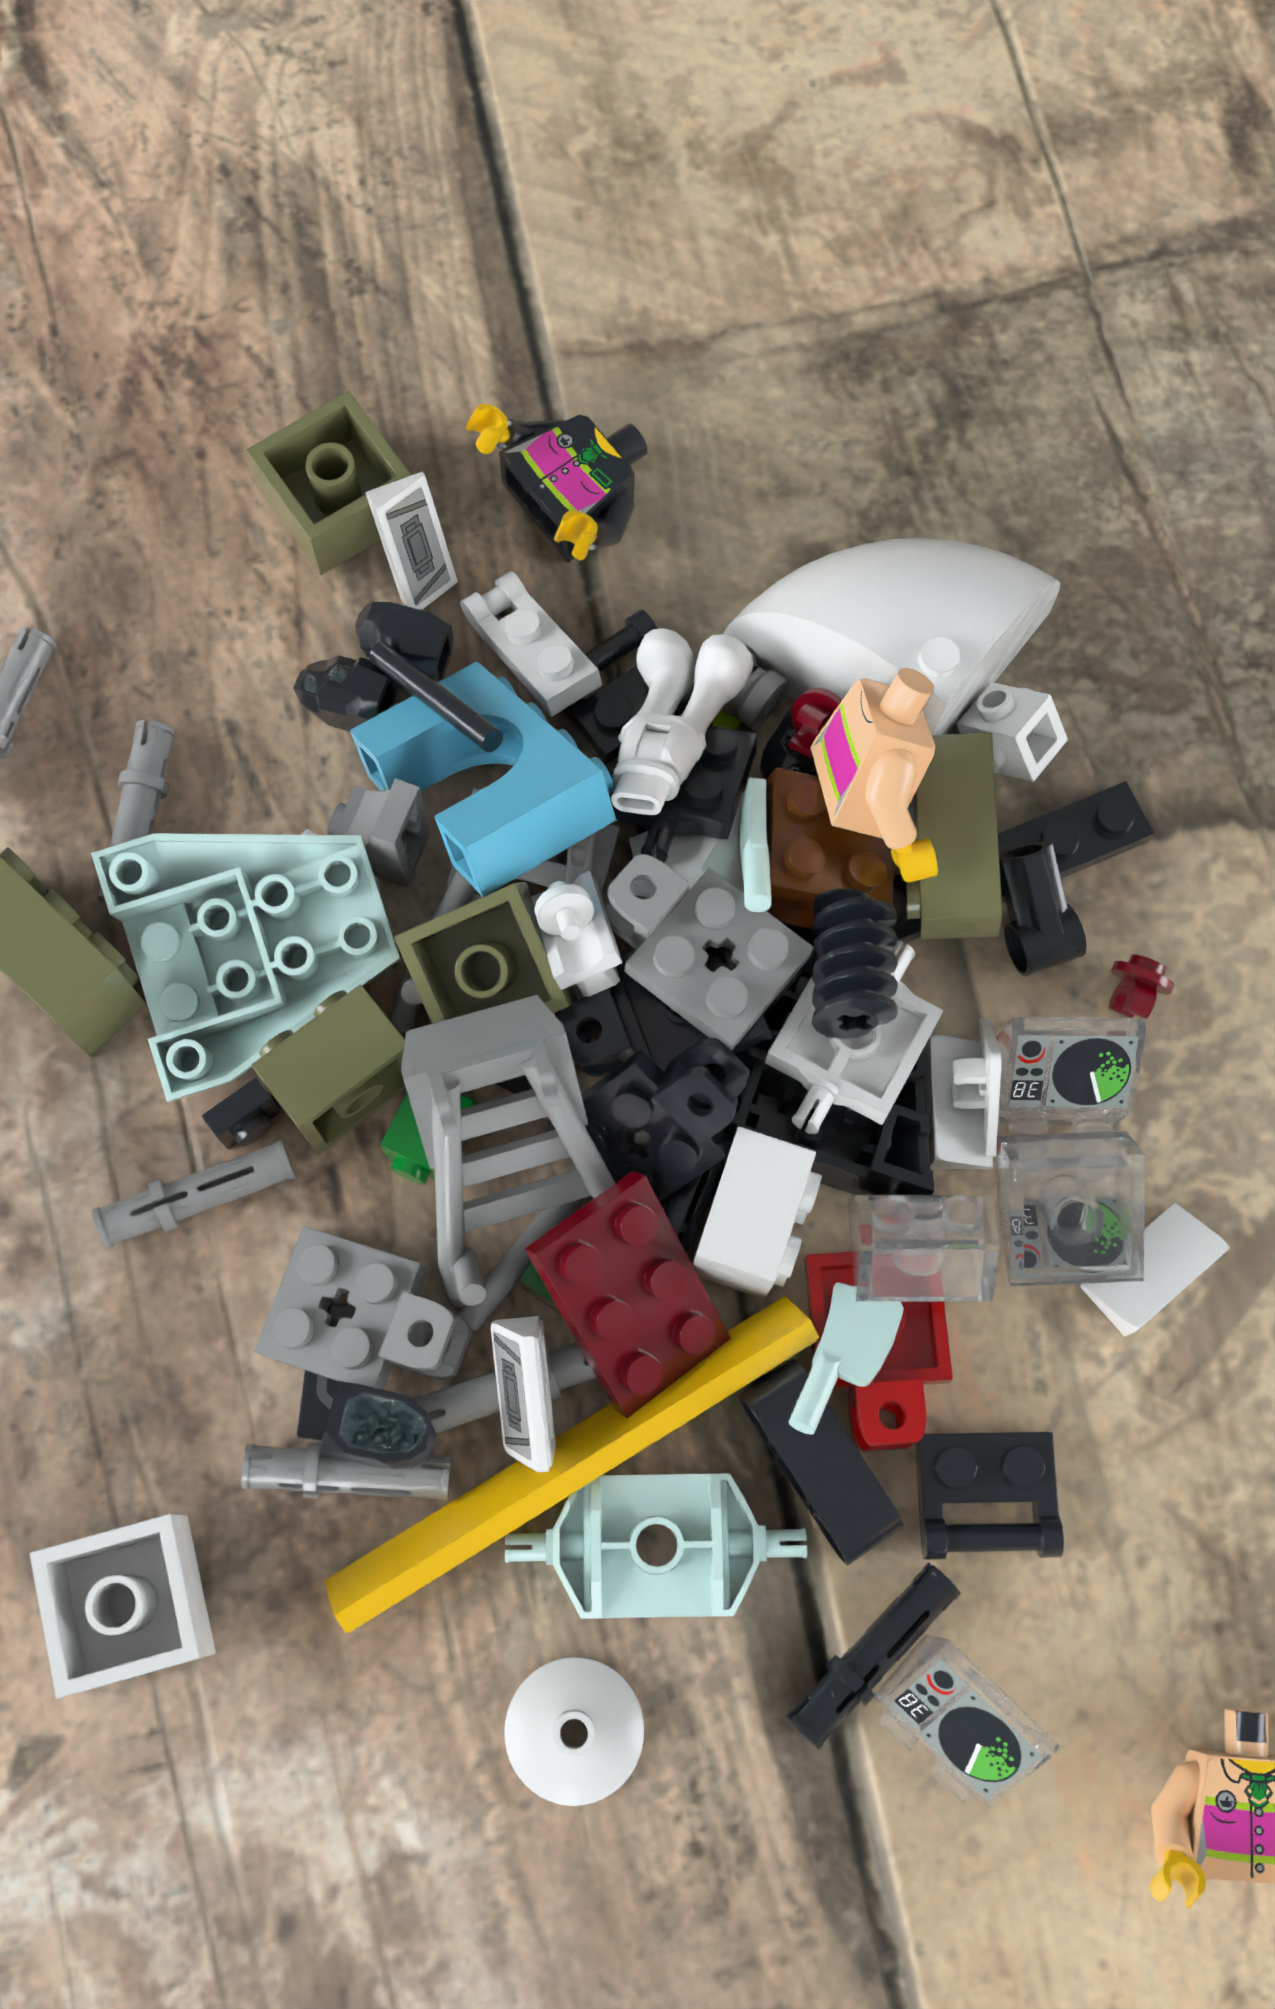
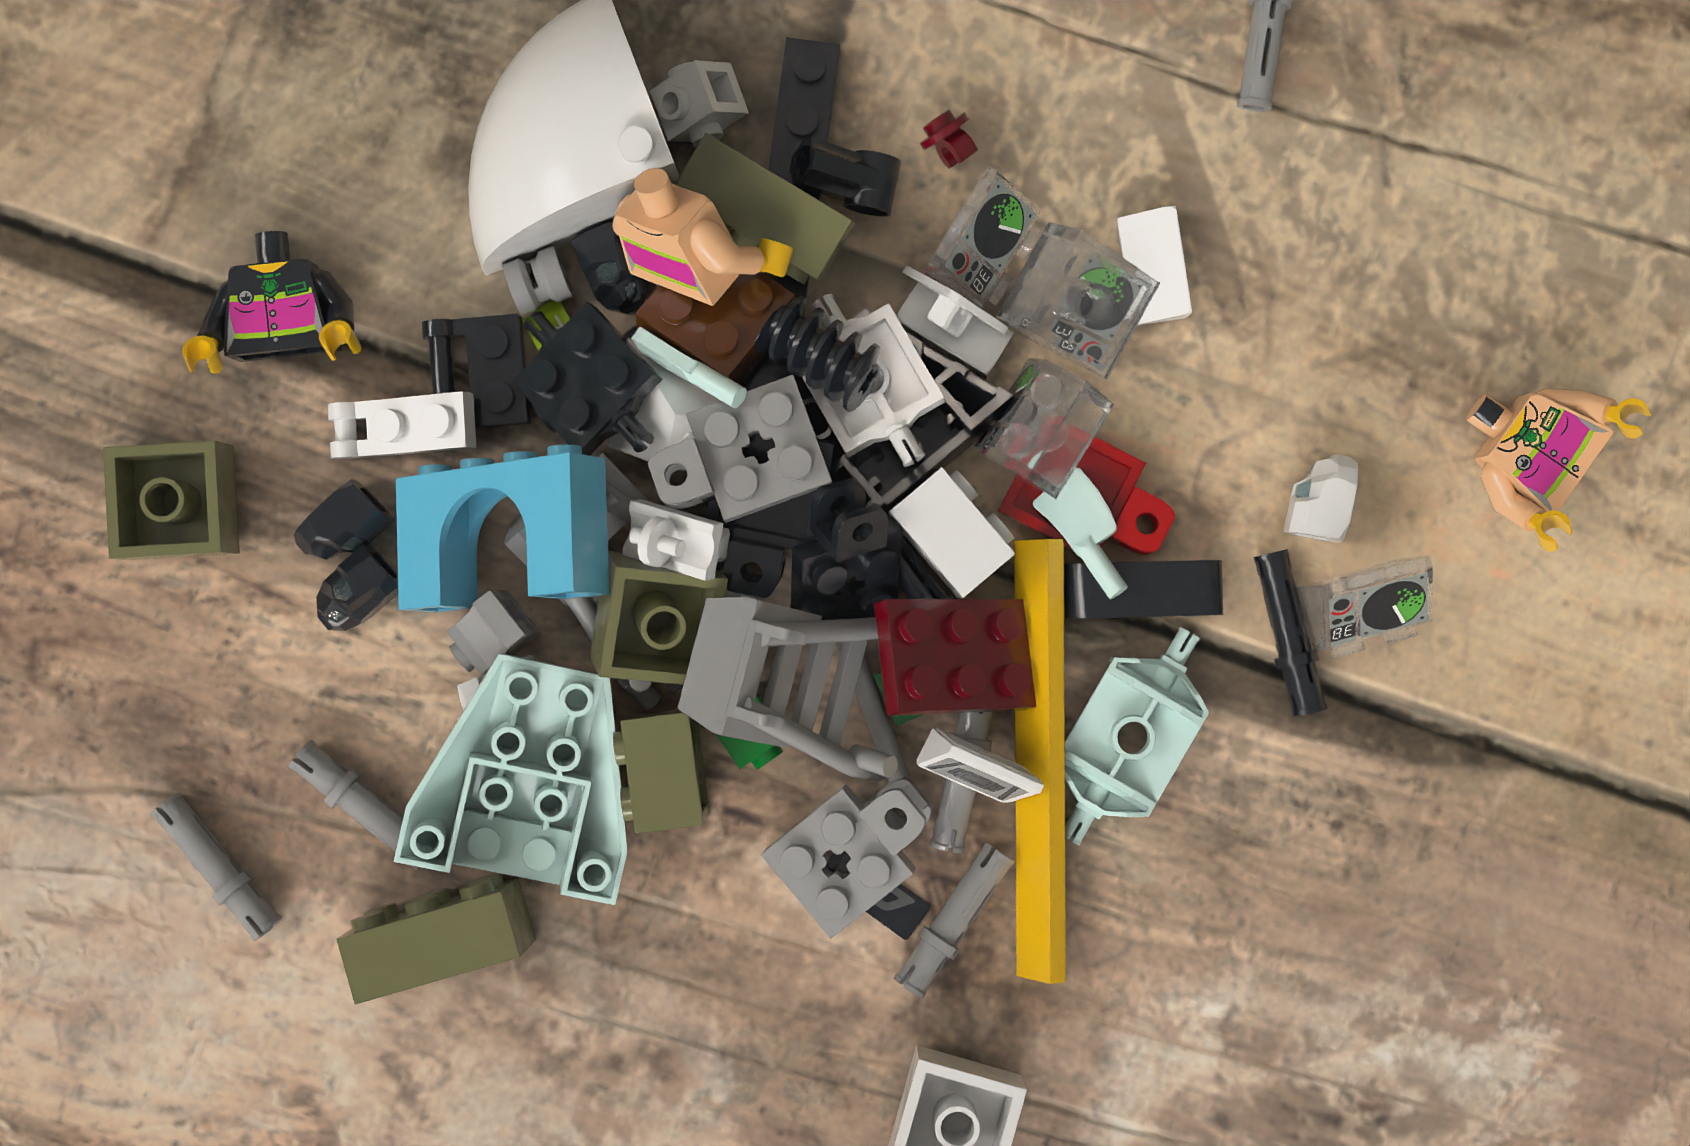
camera: 55 degrees left, 15 degrees up
(161, 1203) = (678, 983): light grey pin -> none
(242, 1115) = (654, 857): black plate -> none
(377, 1428) = (941, 885): rock -> none
(412, 540) = (262, 469): slope -> none
(436, 697) = (415, 531): black bar -> none
(580, 1691) = (1192, 846): white dish -> none
(662, 747) = (567, 387): white piece -> none
(810, 715) = (604, 251): dark red plate -> none
(988, 1470) = (1217, 478): black plate -> none
(1035, 1601) = (1324, 500): none -> white rock

